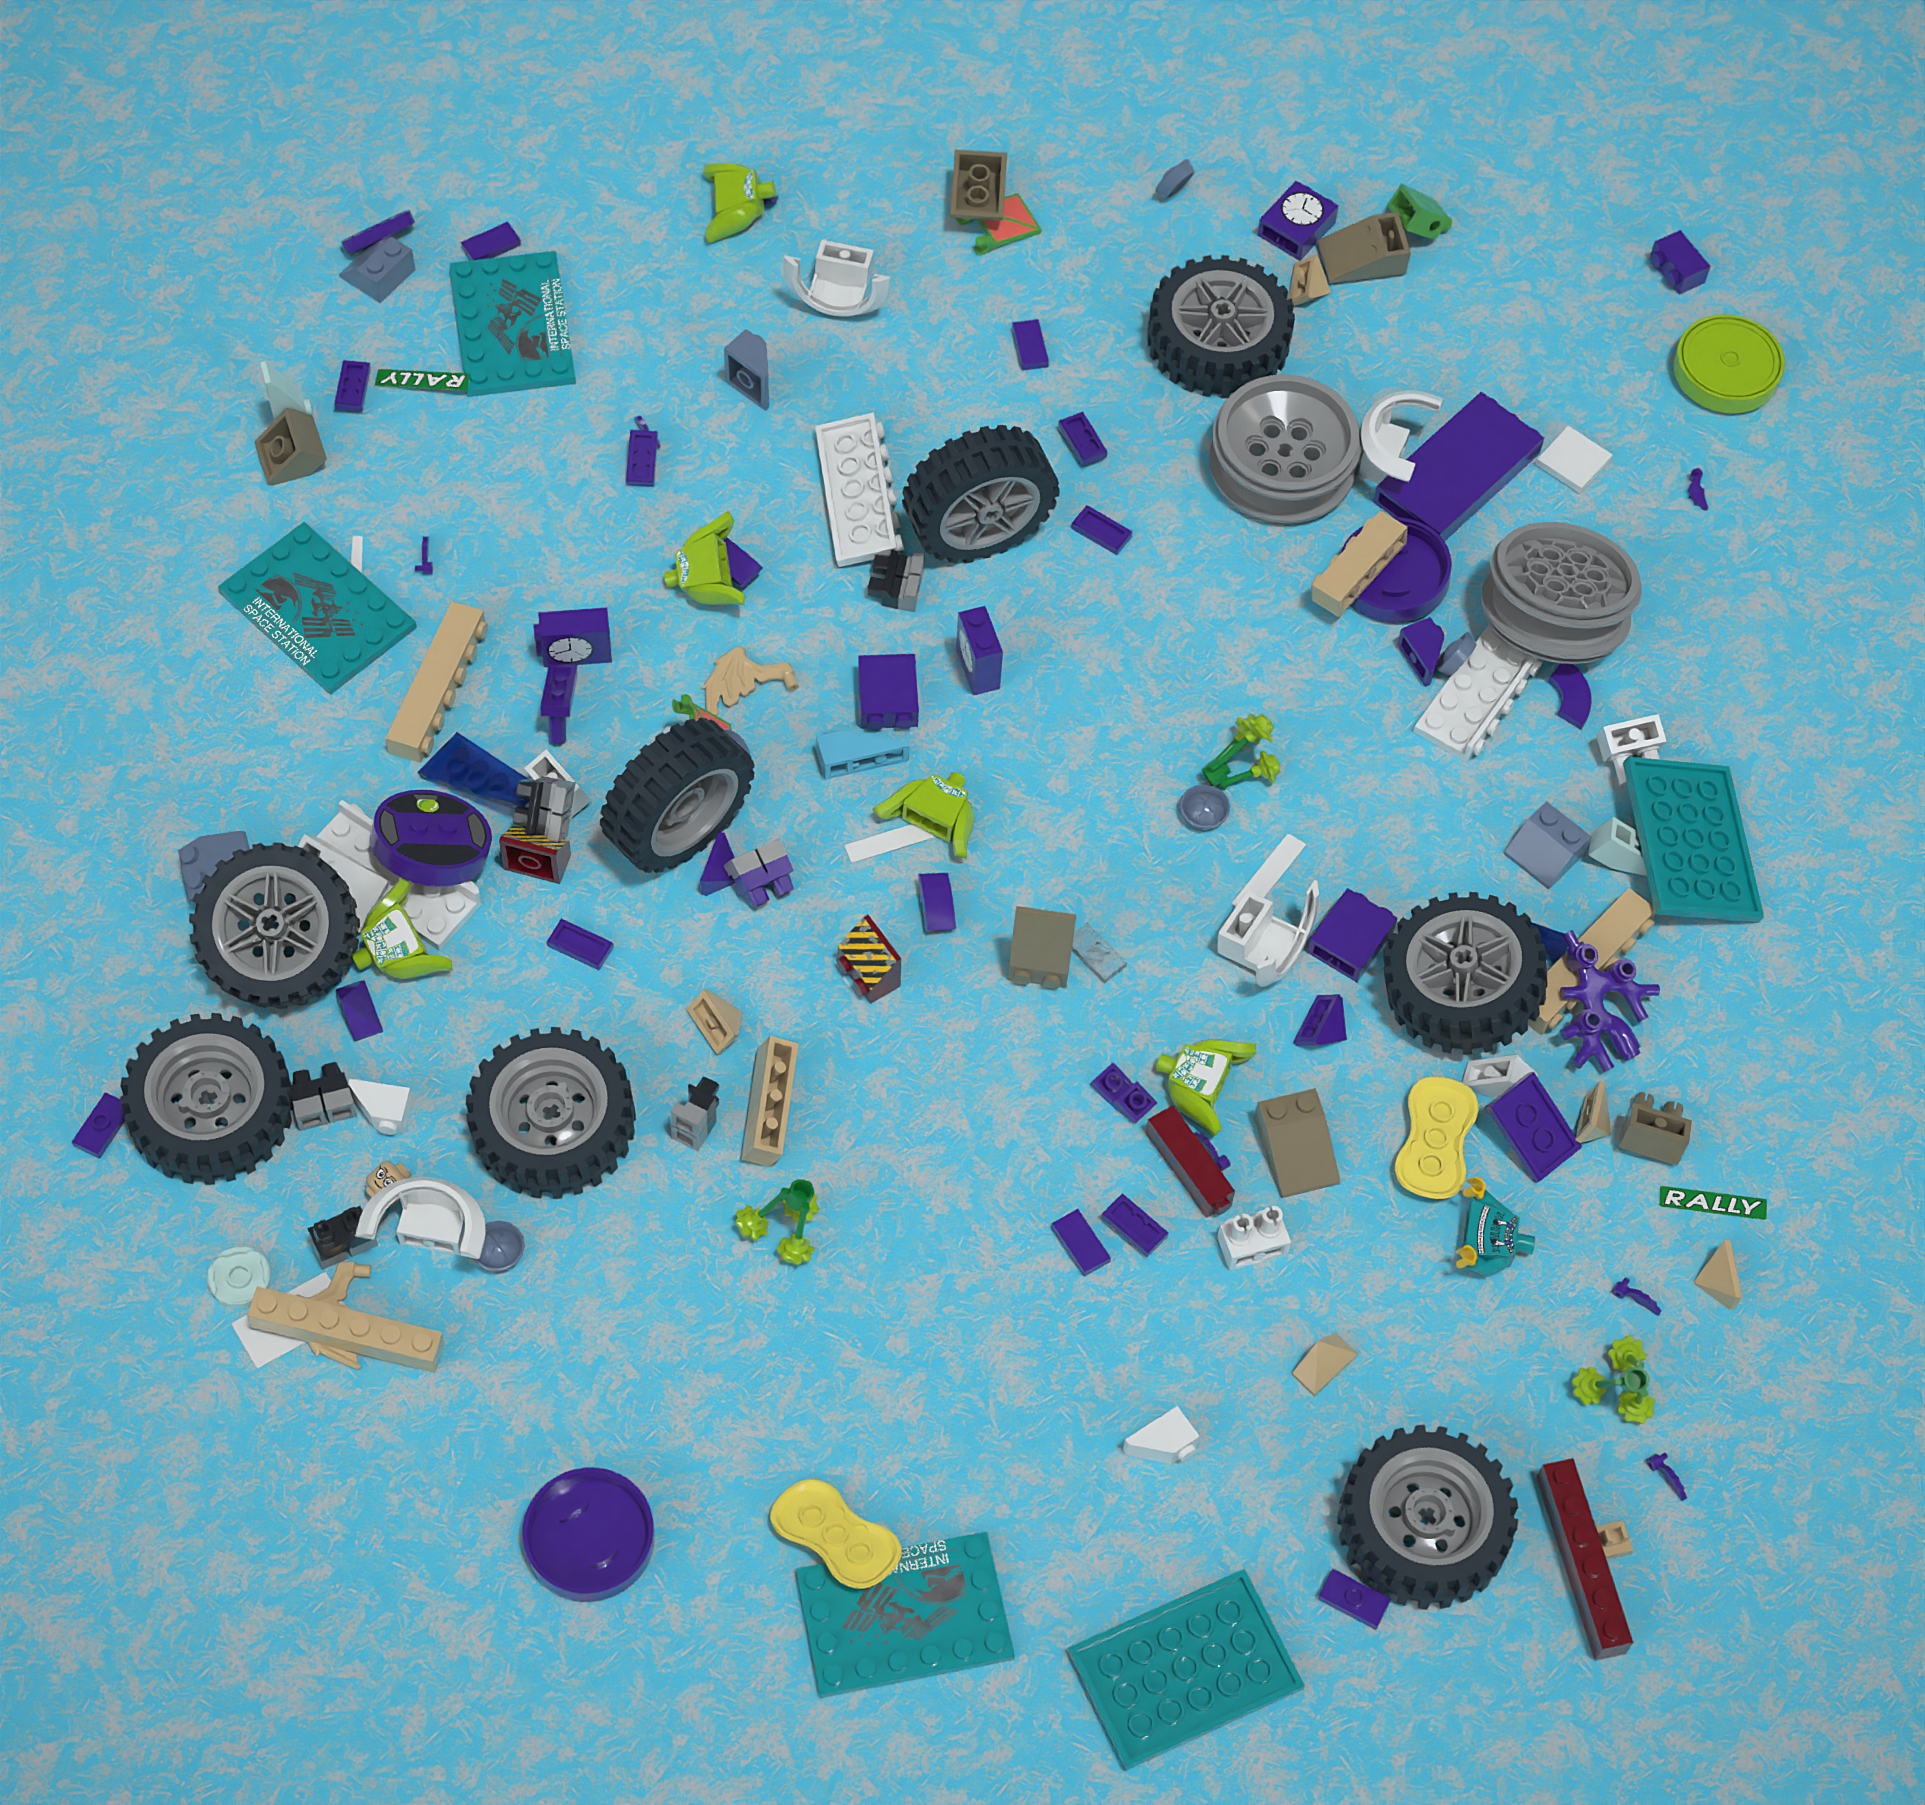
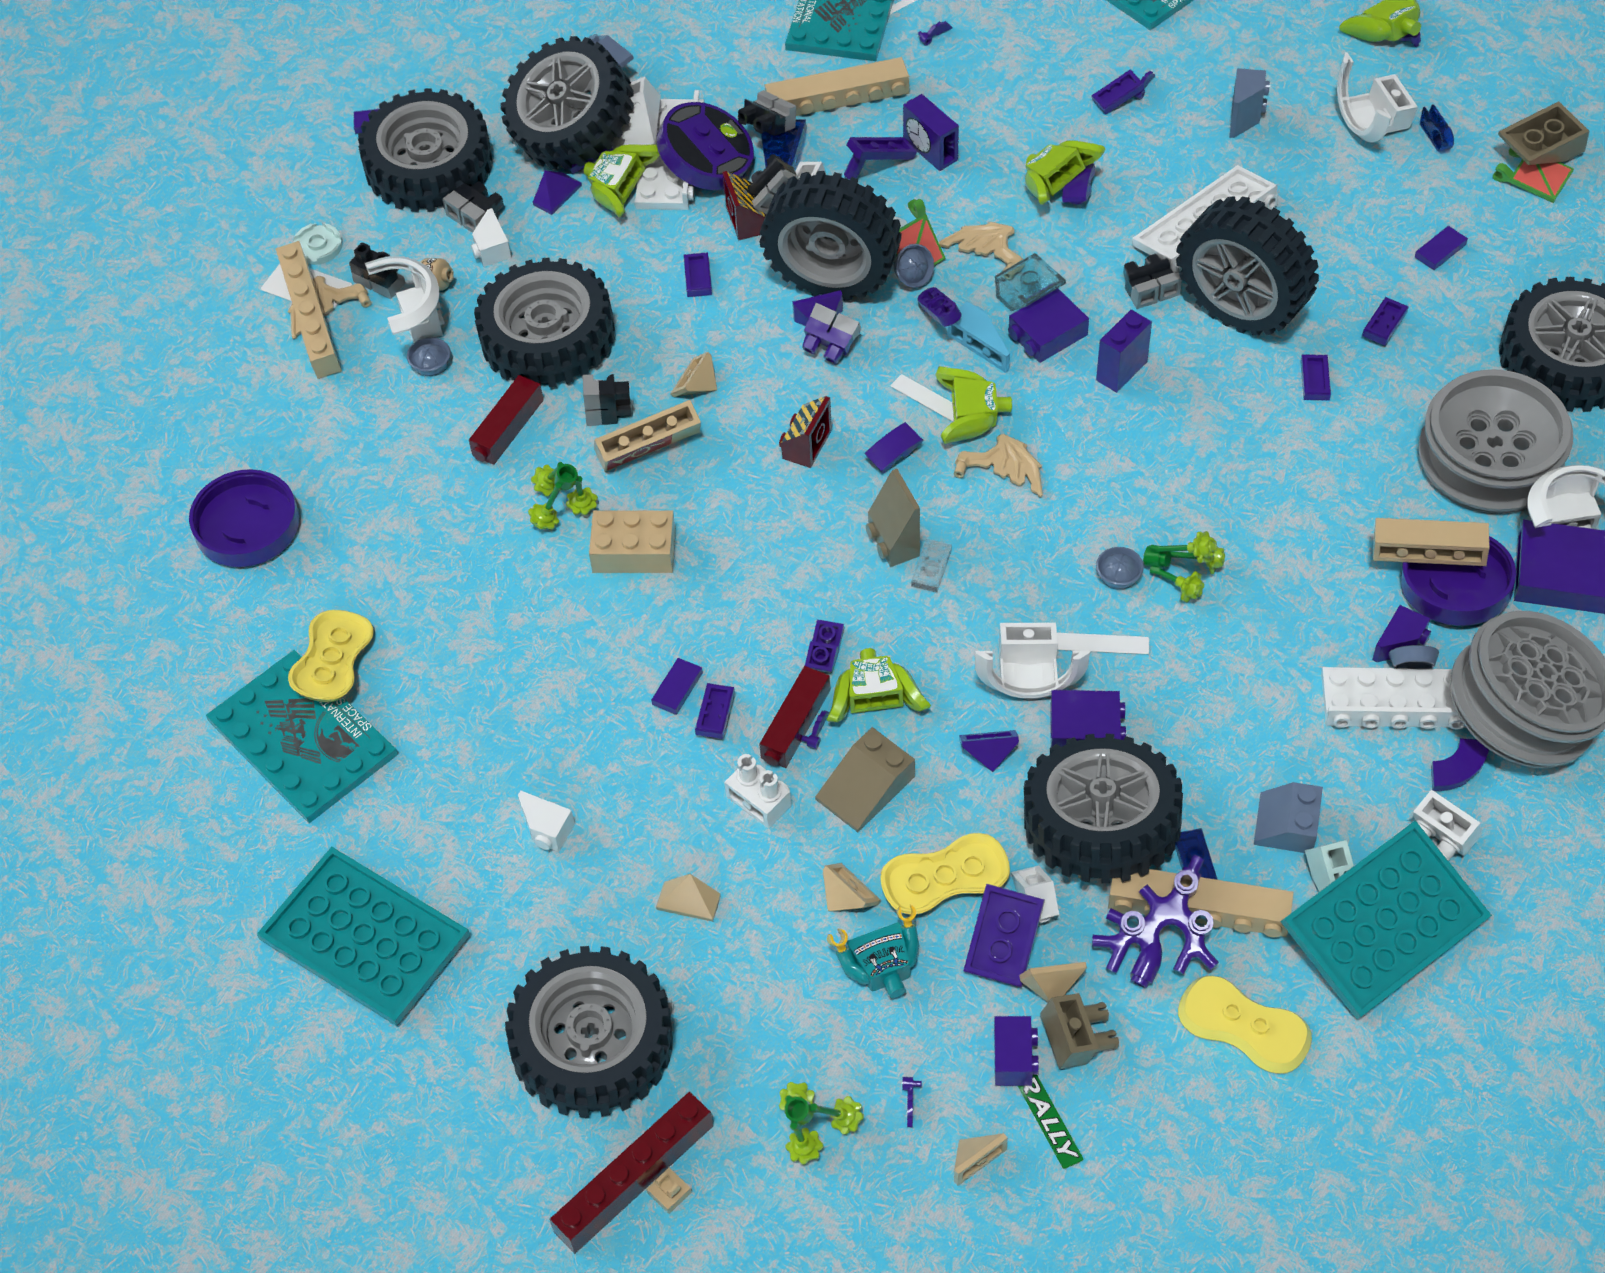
camera: 65 degrees right, 5 degrees down
(427, 766) = (768, 114): none -> black hips
(644, 1219) = (506, 420): none -> dark red brick
(814, 768) = (939, 306): none -> dark purple beam
(837, 675) = (1026, 282): none -> clear light blue slope
(888, 1186) = (632, 541): none -> tan brick
(893, 254) = (1436, 129): none -> clear blue piece
(1018, 819) = (1008, 459): none -> tan animal
(1354, 1599) = (492, 1023): dark purple plate -> none
(1401, 1227) = (845, 889): none -> tan slope
(1644, 1188) = (1014, 1050): none -> dark purple brick
(1656, 1462) = (763, 1190): dark purple piece -> none
(1696, 1013) = (1268, 1035): none -> light yellow plate

